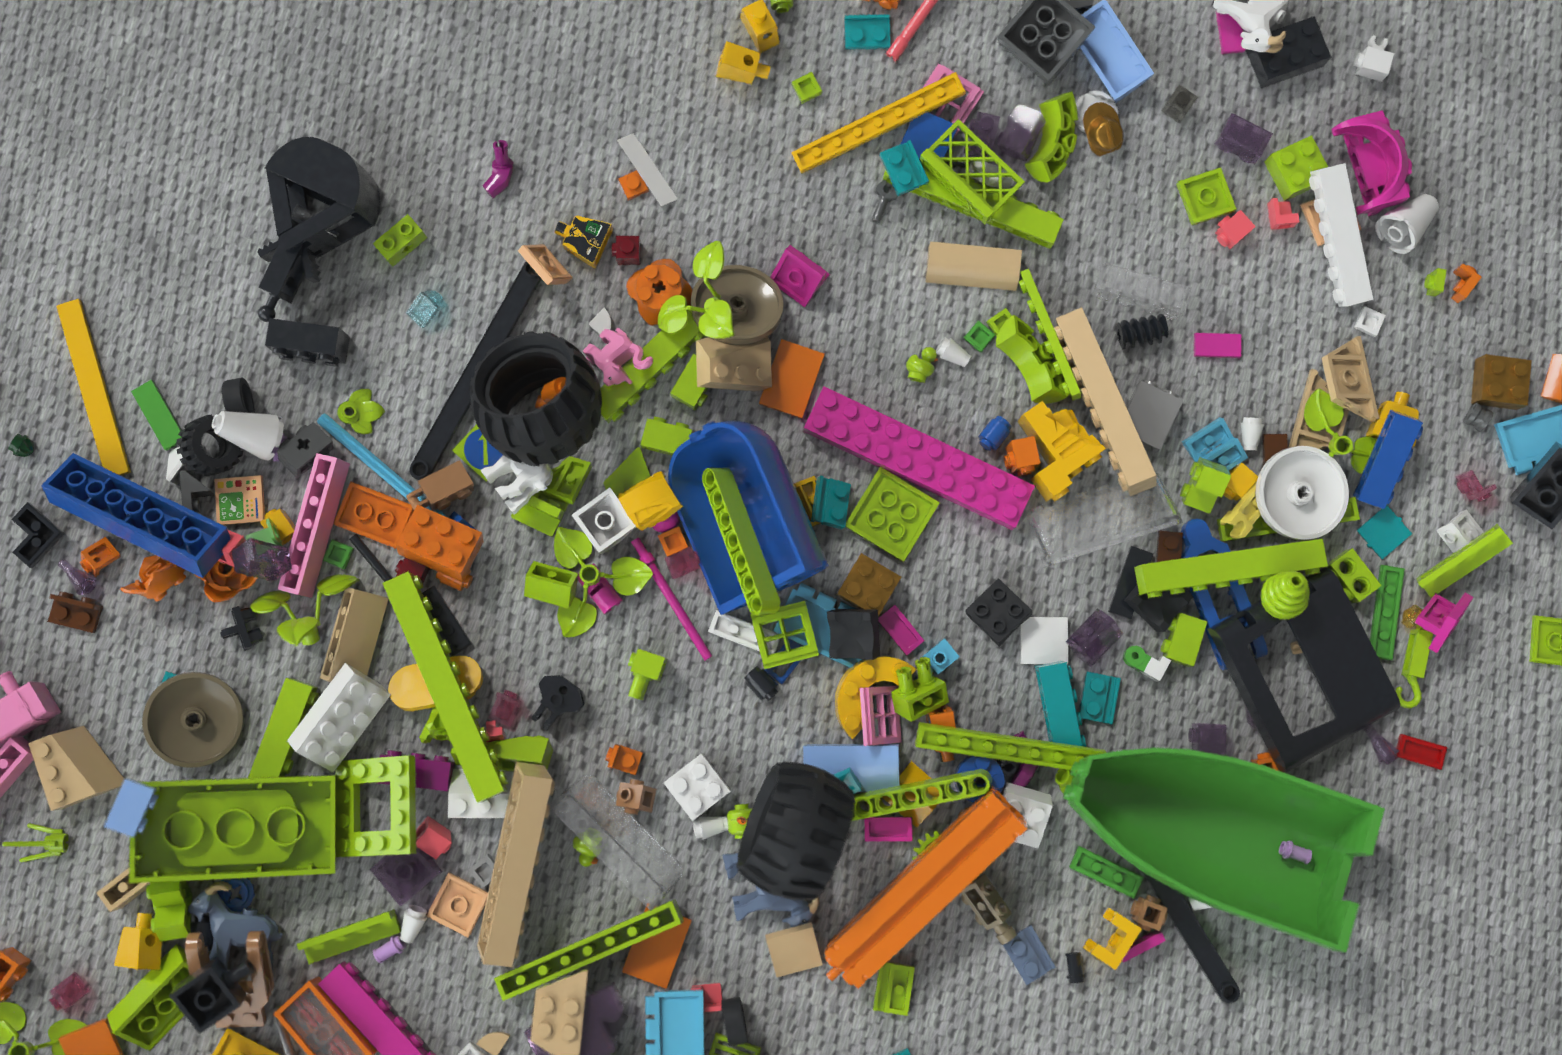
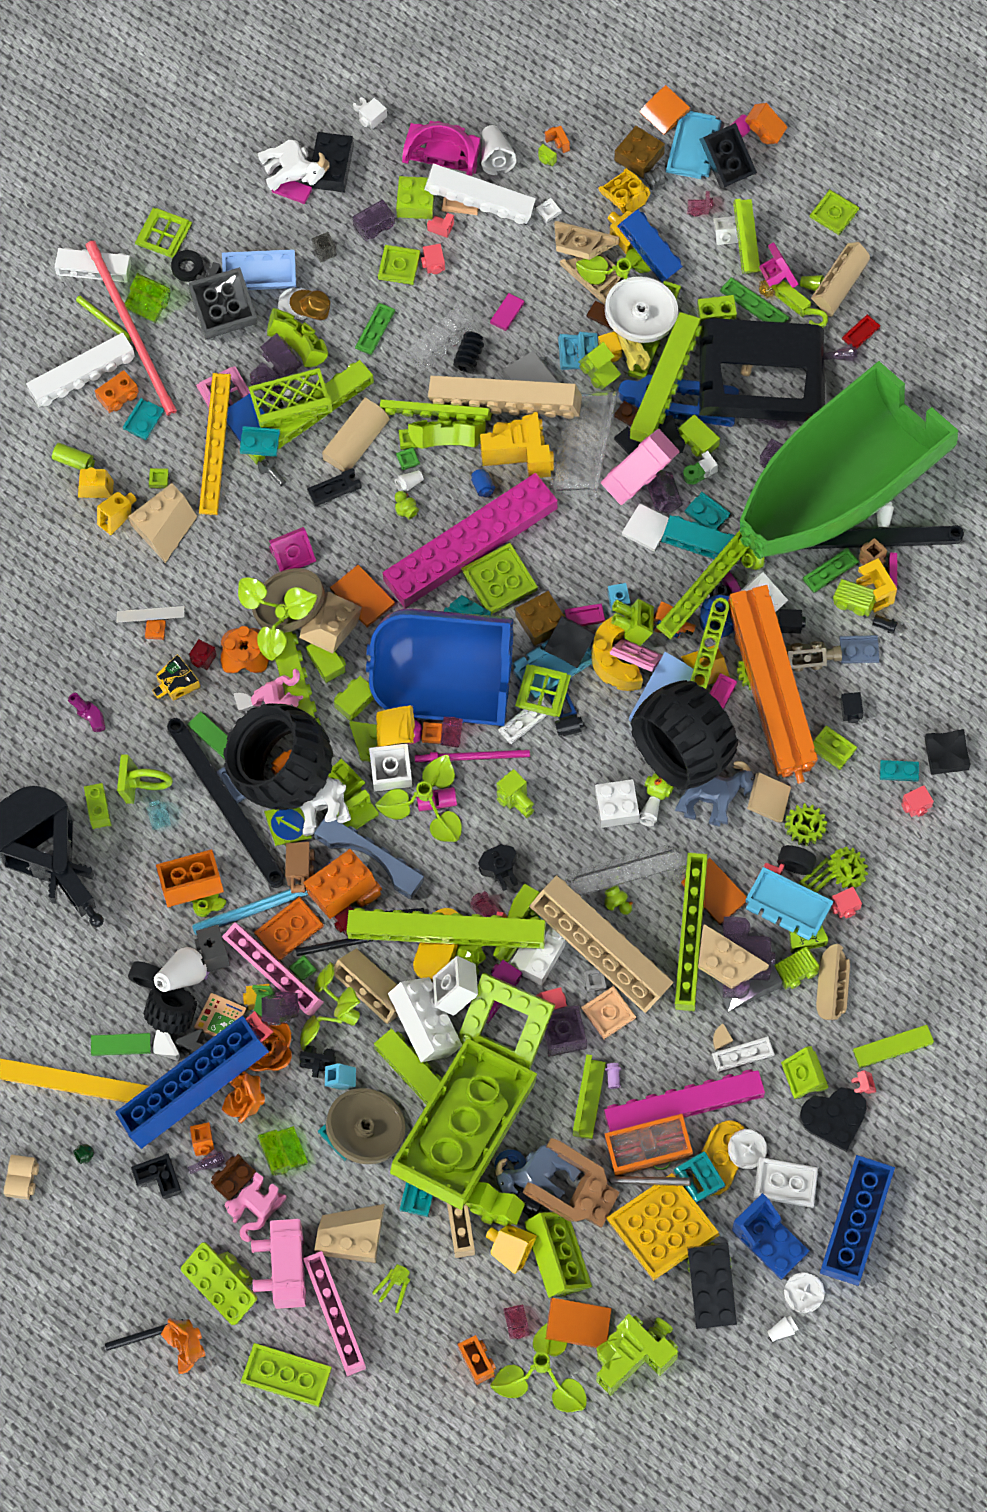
camera: 55 degrees left, 15 degrees down
(57, 651) = (257, 1203): none -> bright pink animal
(124, 646) = (282, 1150): none -> clear neon green brick
(131, 807) = (411, 1165): light blue brick -> none
(211, 993) = (575, 1190): black brick -> none
(233, 662) = (340, 1076): none -> medium azure brick
(307, 342) = (134, 904): black brick -> none
(366, 382) = (189, 878): none -> orange brick
(386, 731) = (455, 985): none -> white brick
(413, 920) = (603, 1049): white cone -> none
(443, 256) = (130, 776): none -> lime tile
(490, 603) = (337, 835): none -> sand blue arch
(545, 264) = (181, 712): light nougat tile -> none
(547, 308) = (209, 733): none -> bright green tile
(550, 584) = (414, 827): lime brick -> none
(552, 389) = (278, 747): orange brick -> none
(624, 759) = (568, 845): orange bracket -> none
(635, 797) = (600, 848): medium nougat brick -> none
(741, 541) = (467, 674): lime beam -> none
(759, 122) = (164, 521): none -> tan wedge
(794, 1013) = (810, 817): none -> lime gear
(899, 277) = (334, 487): none -> black plate
(951, 985) = (851, 707): none -> black brick
(998, 612) = (609, 543): black brick -> none
(1018, 862) = (791, 621): none -> black brick
(1022, 456) = (509, 470): orange brick -> none
(1086, 919) = (854, 597): none -> lime brick
(1102, 600) = (640, 467): none -> bright pink piece
(1114, 214) = (375, 328): none -> bright green tile
(1251, 432) = (580, 321): white cone -> none
(1285, 594) = (703, 351): lime piece -> none
(1292, 851) = (880, 445): lavender pin -> none
(1384, 532) = (698, 277): teal piece -> none
(1442, 394) = (626, 191): none -> yellow slope
(1451, 667) = (811, 282): none -> lime cone
(1475, 695) = (841, 278): none -> tan brick

